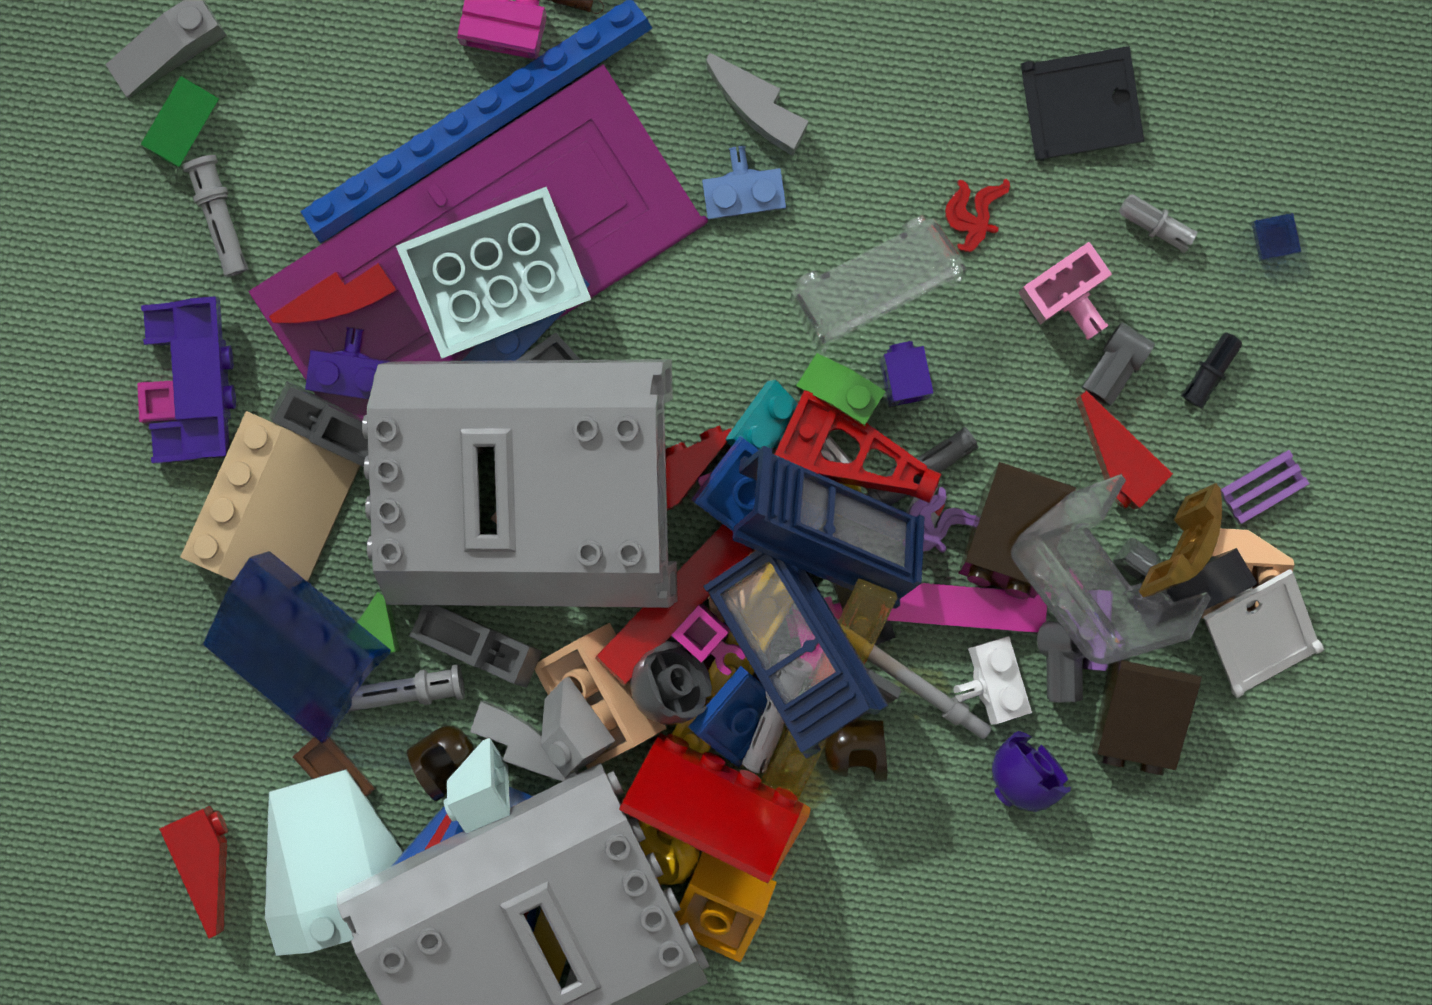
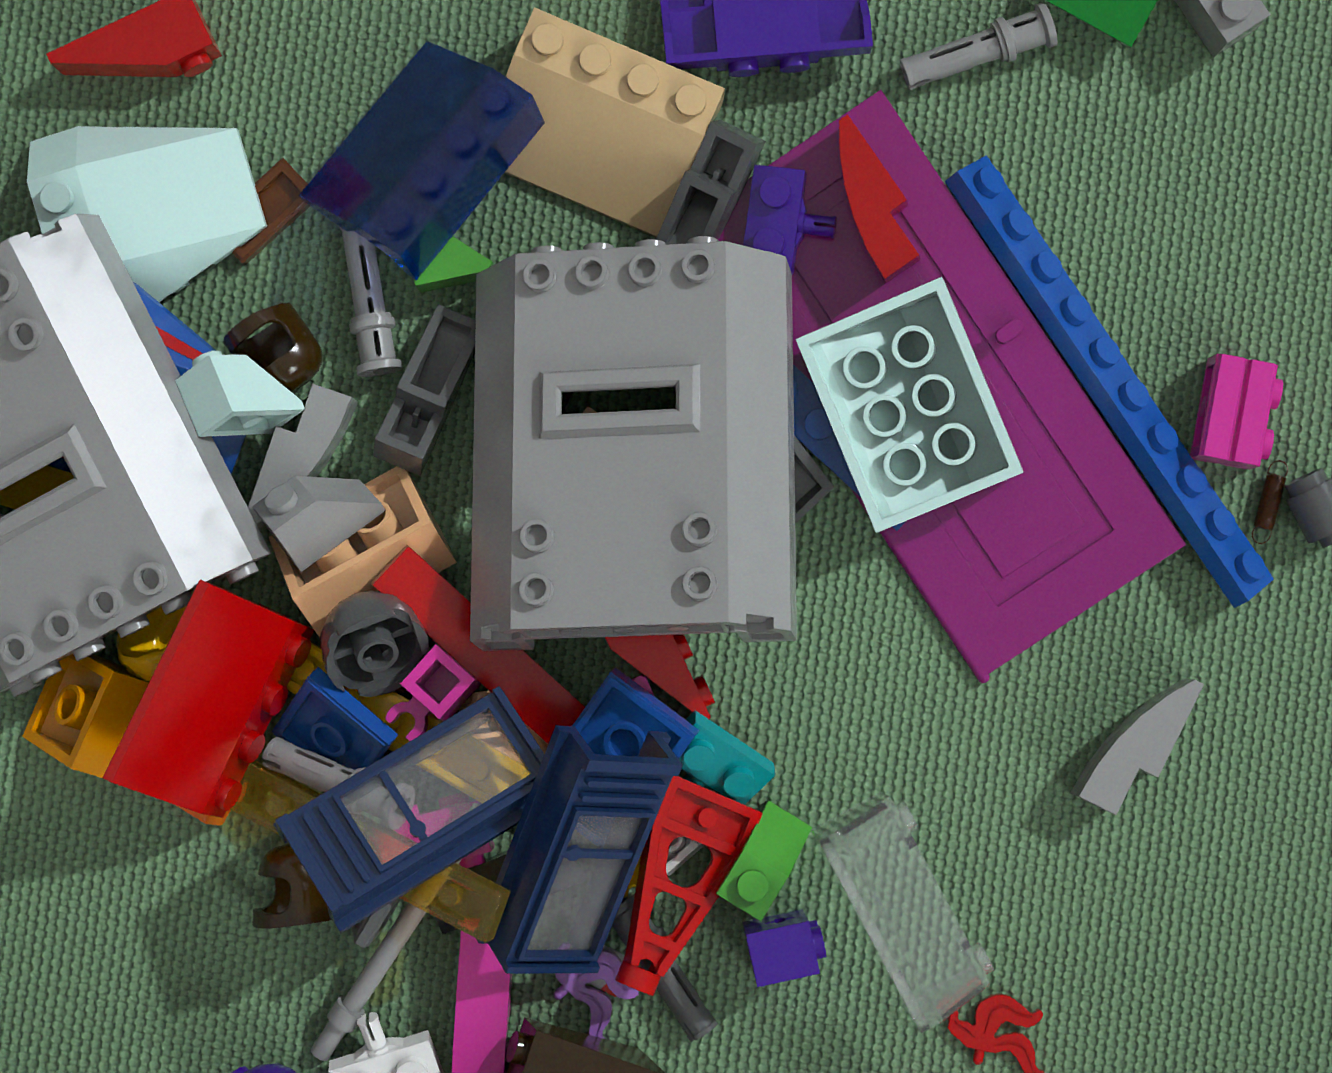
camera: 80 degrees right, 0 degrees up
(743, 190) = (1024, 729): medium blue plate -> none

